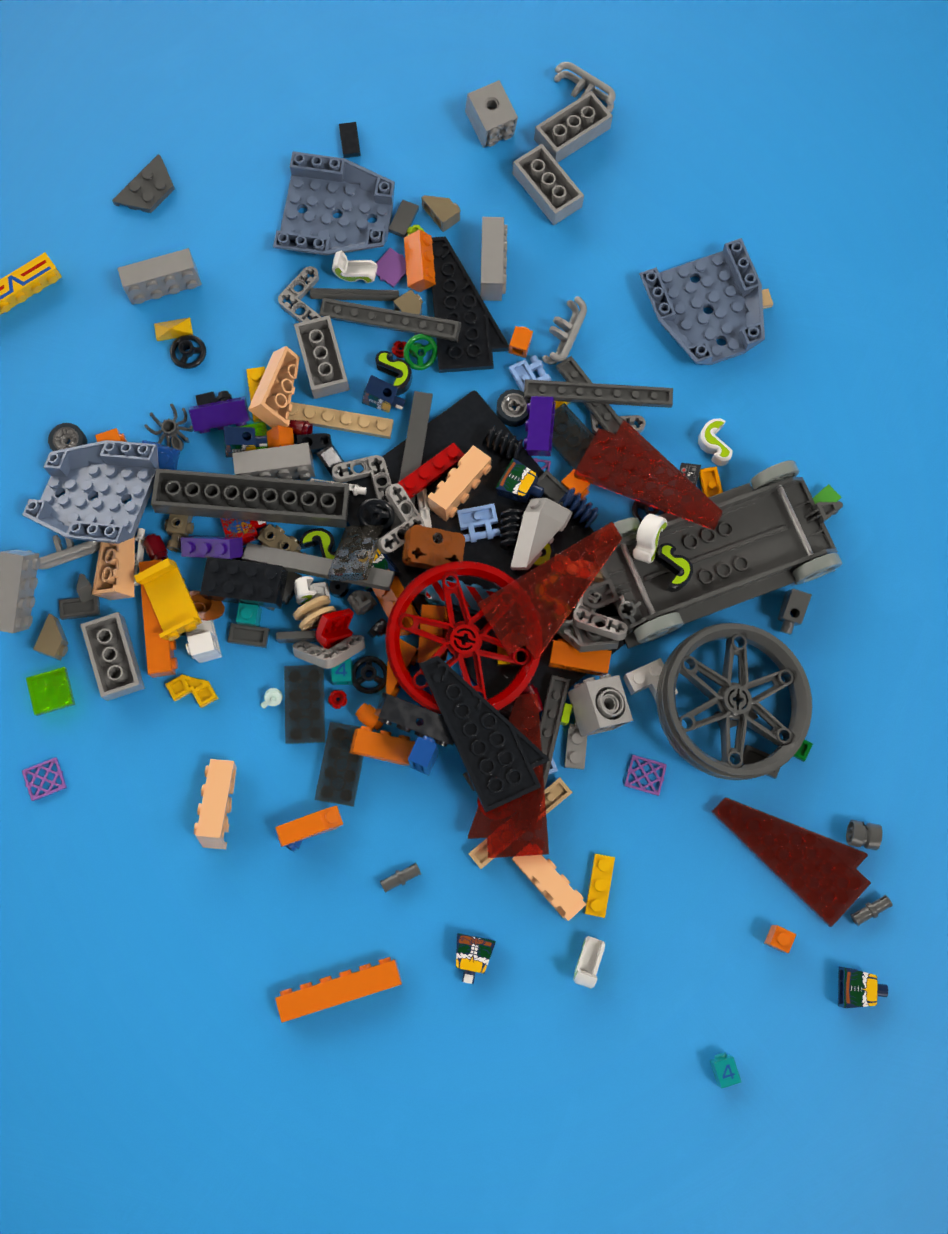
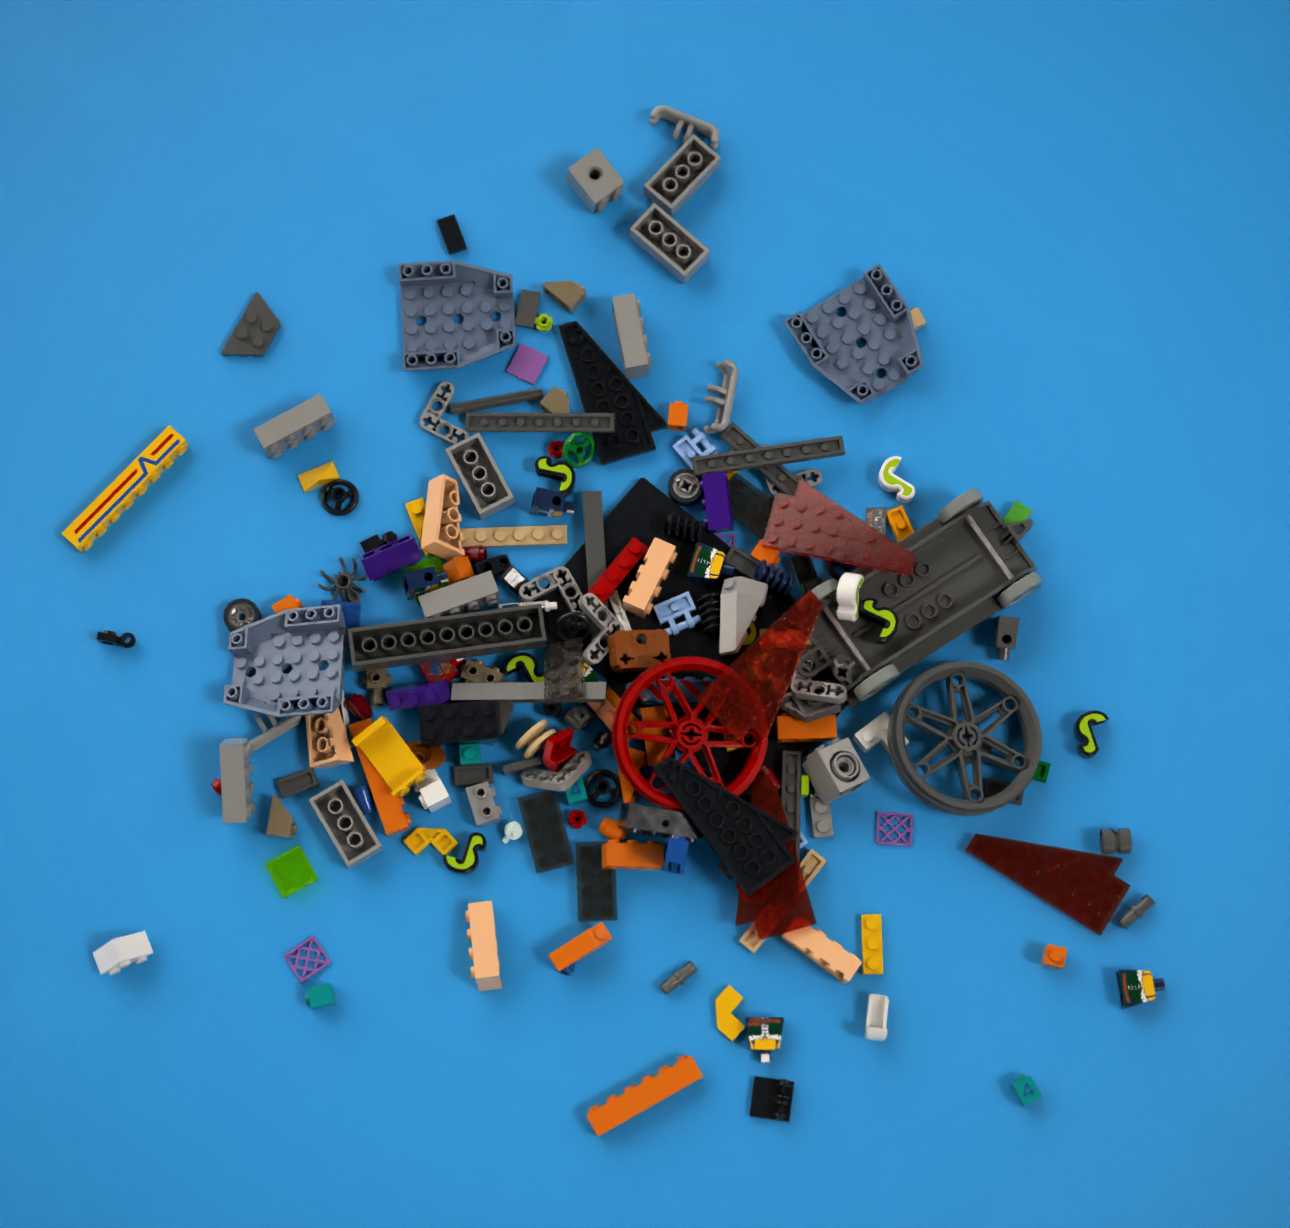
camera: 10 degrees left, 0 degrees up
(46, 819) = (320, 996): none -> teal brick
(84, 589) = (301, 763): dark grey slope -> none
(137, 636) = (364, 799): none -> blue cone
(225, 714) = (470, 858): none -> black animal
(250, 665) = (483, 804): none -> light grey brick
(306, 591) = (524, 718): white animal -> none
(354, 269) = (491, 376): white animal -> none
(419, 261) = (556, 353): orange brick -> none
(438, 932) = (725, 1004): none -> yellow tile
(466, 1021) = (771, 1098): none -> black hinge
(610, 507) = (805, 572): none -> black animal
(852, 720) = (1084, 732): none -> black animal

